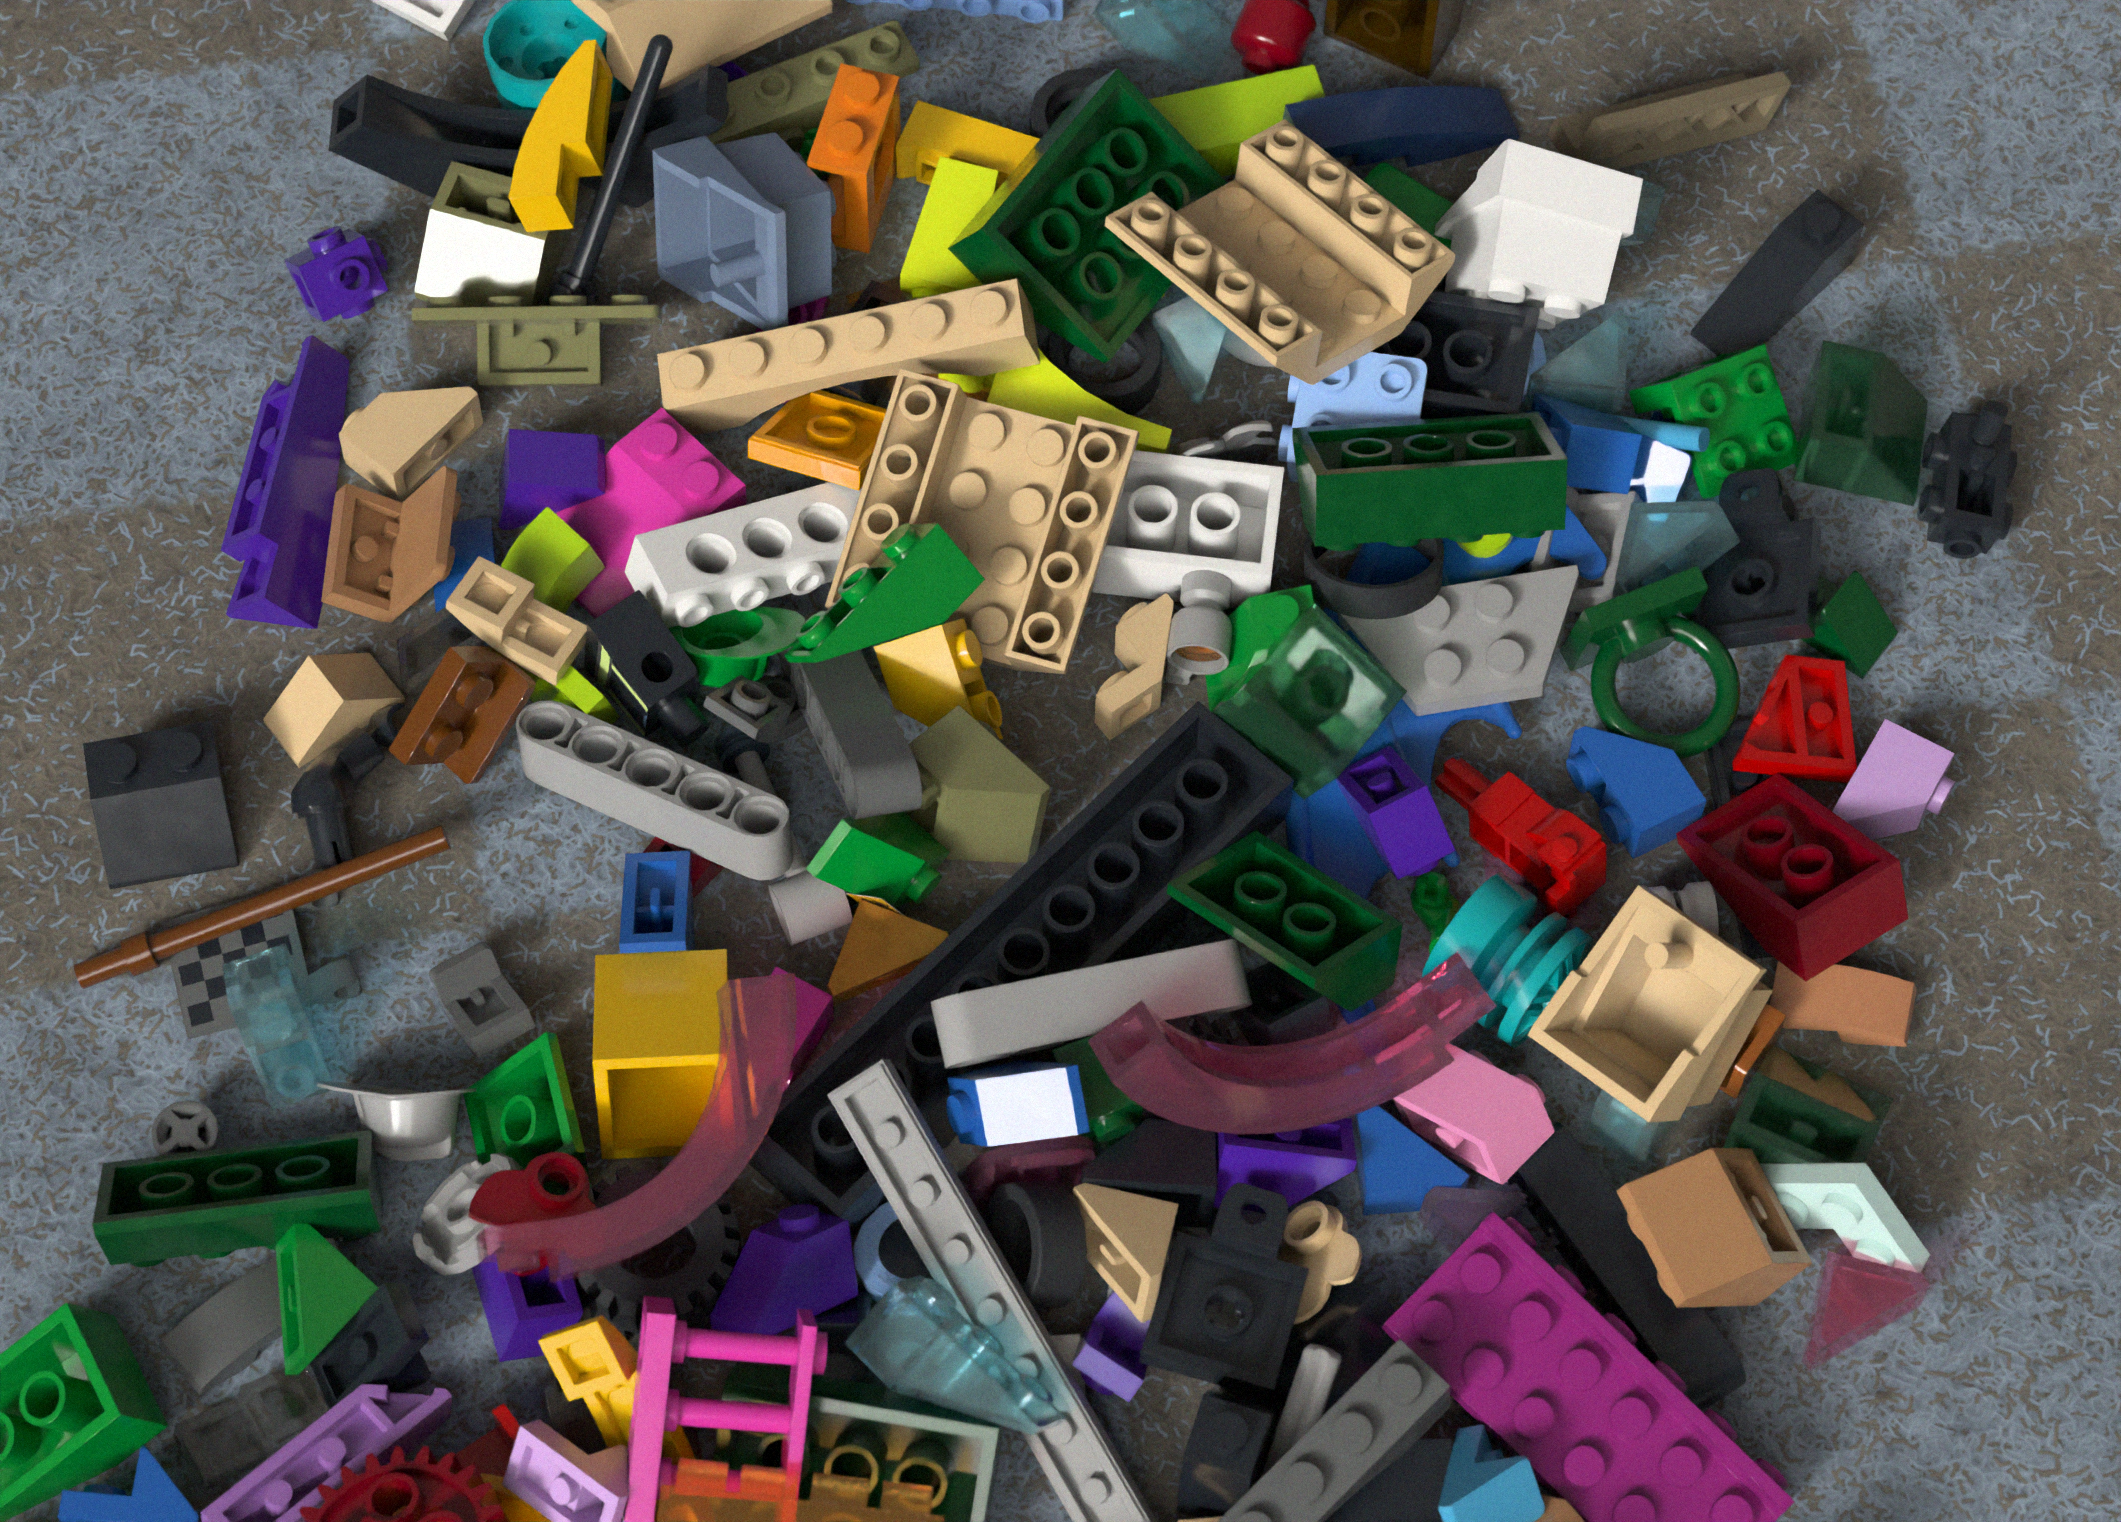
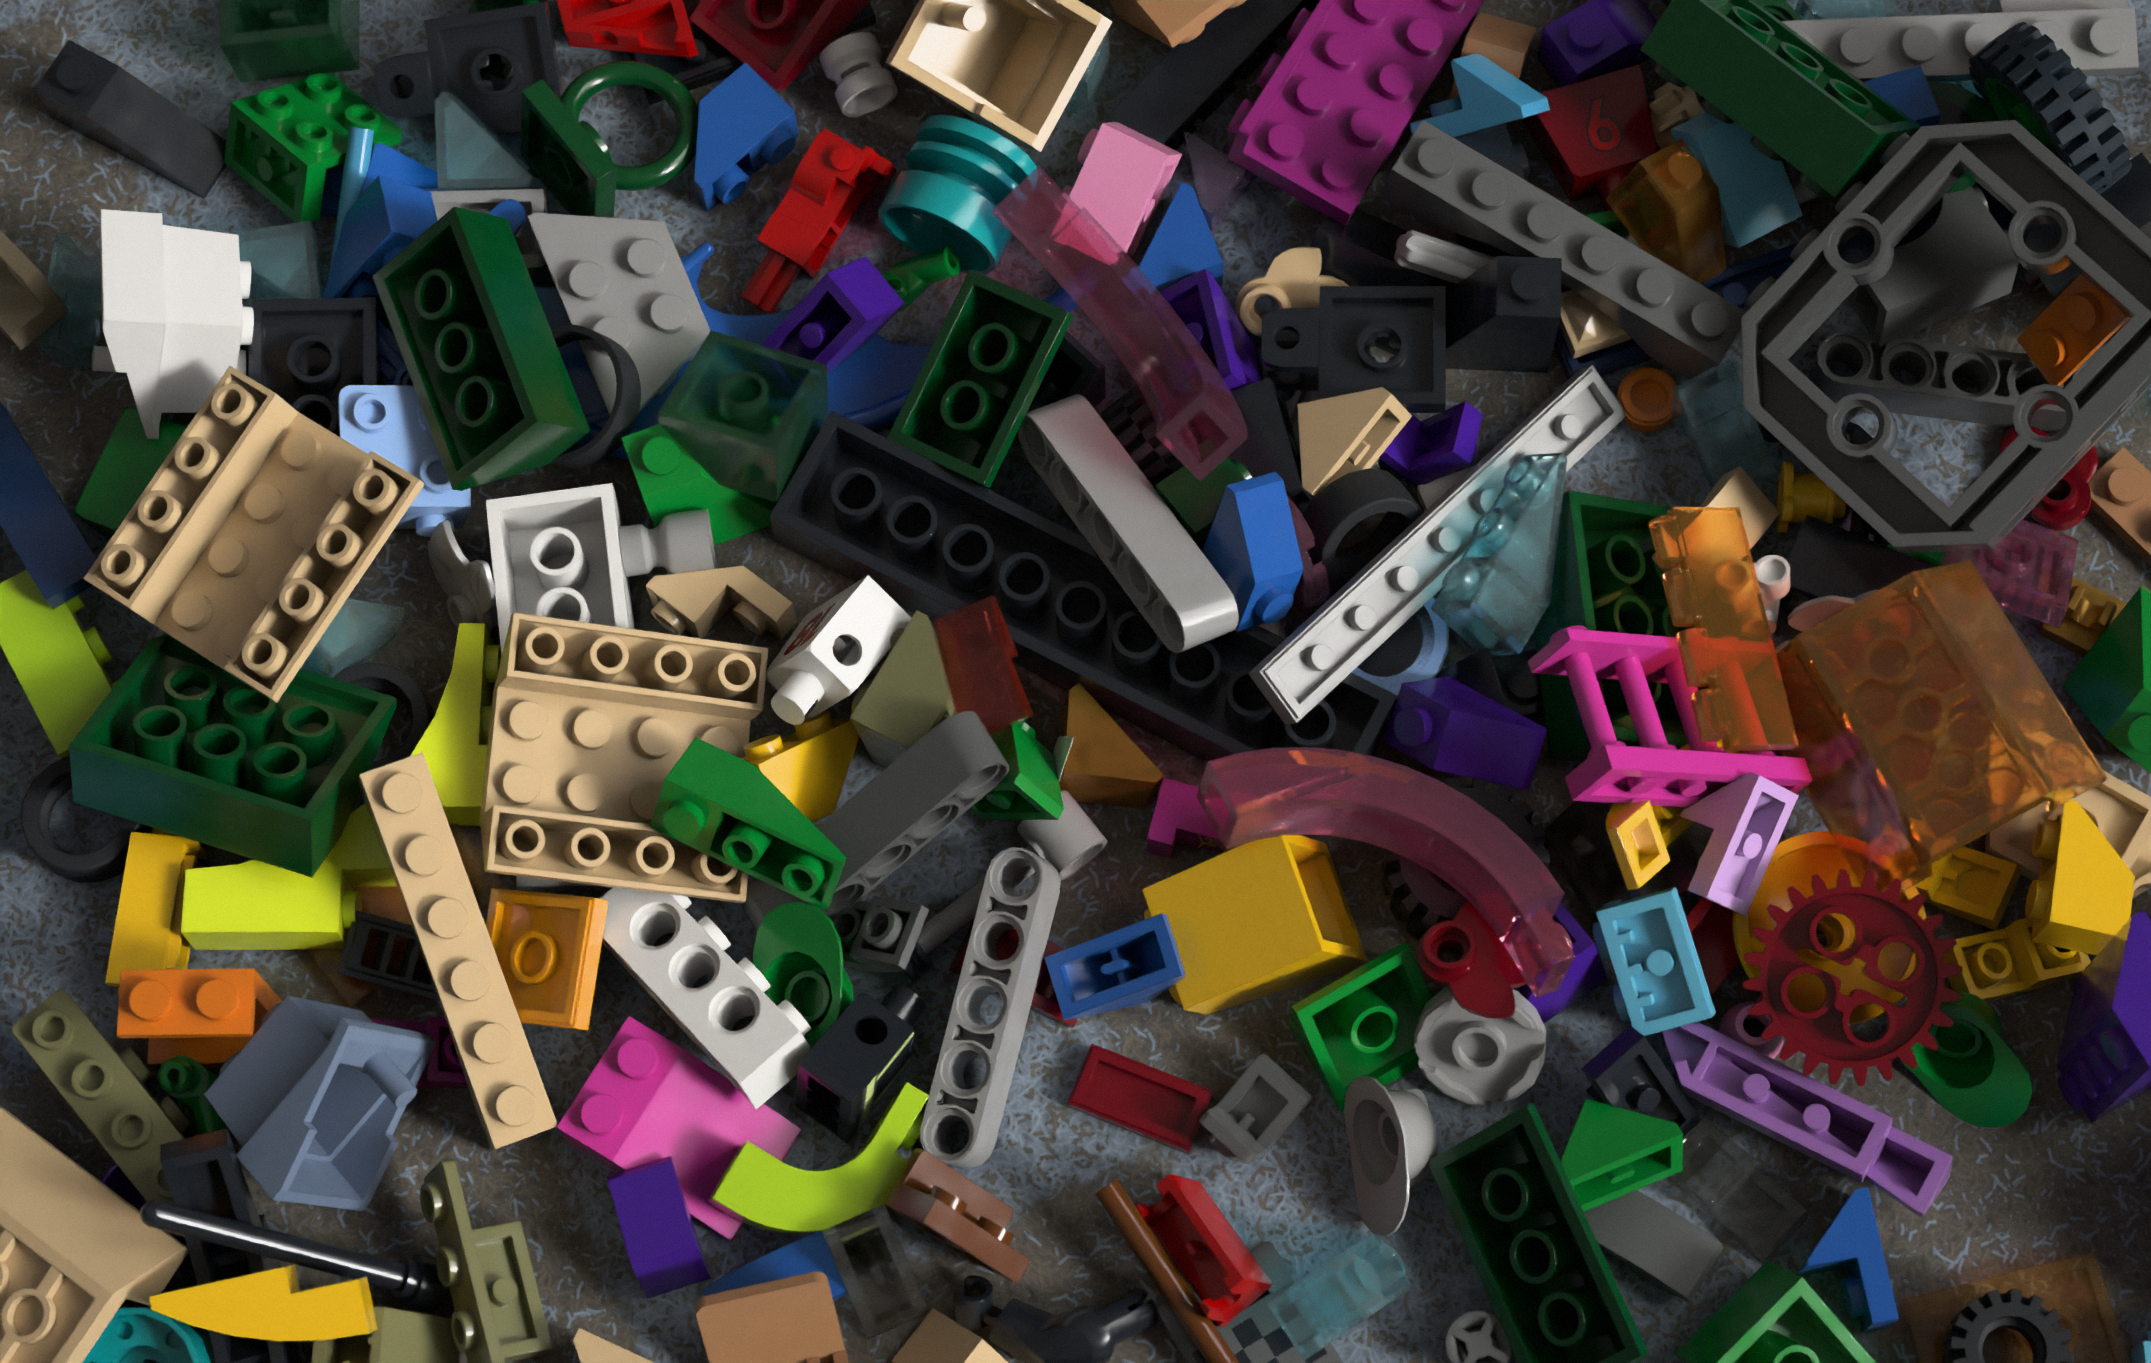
camera: 100 degrees left, 10 degrees up
(365, 923) = (1205, 1248): none -> red hinge
(481, 1382) = (1653, 962): none -> medium azure bracket
(508, 618) = (859, 1180): tan slope -> none
(537, 916) = (1140, 1099): none -> dark red tile
(1001, 838) = (980, 665): none -> clear red slope
(1057, 743) = (818, 666): none -> white torso

